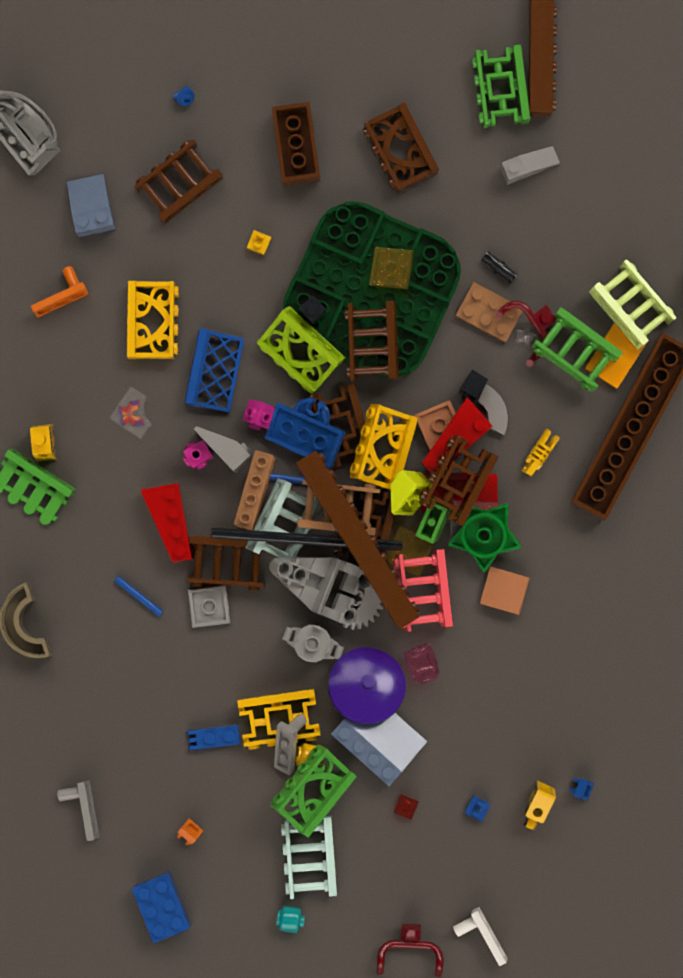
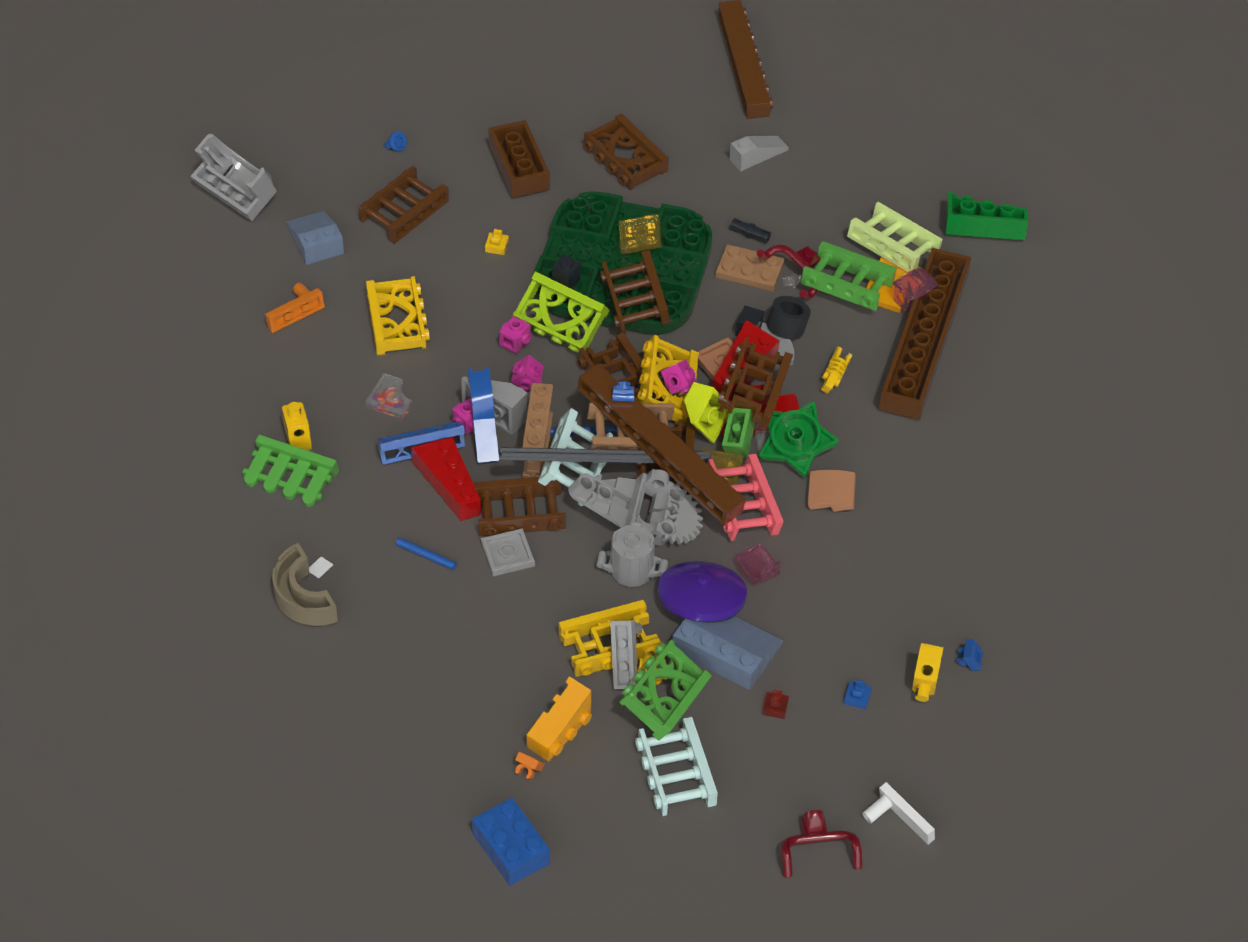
camera: 15 degrees left, 35 degrees down
(46, 592) = (320, 567): none -> white sticker
(84, 793) = (391, 743): light grey piece -> none
(151, 477) = (419, 437): none -> fence
(198, 365) = (454, 343): blue fence -> none
(208, 465) = (483, 416): none -> piece
(214, 737) = (537, 671): blue hinge -> none
(221, 800) = (562, 721): none -> light orange wedge
(256, 371) = (514, 334): none -> dark pink brick
(290, 919) = (667, 832): teal head -> none
(305, 431) = (565, 373): blue plate -> none
(331, 489) = (623, 392): none -> blue plate
(391, 455) = (679, 377): none -> dark pink brick
(498, 394) = (788, 317): none -> black piece
(515, 85) = (708, 84): bright green fence -> none
(633, 376) = (912, 286): none -> clear pink piece

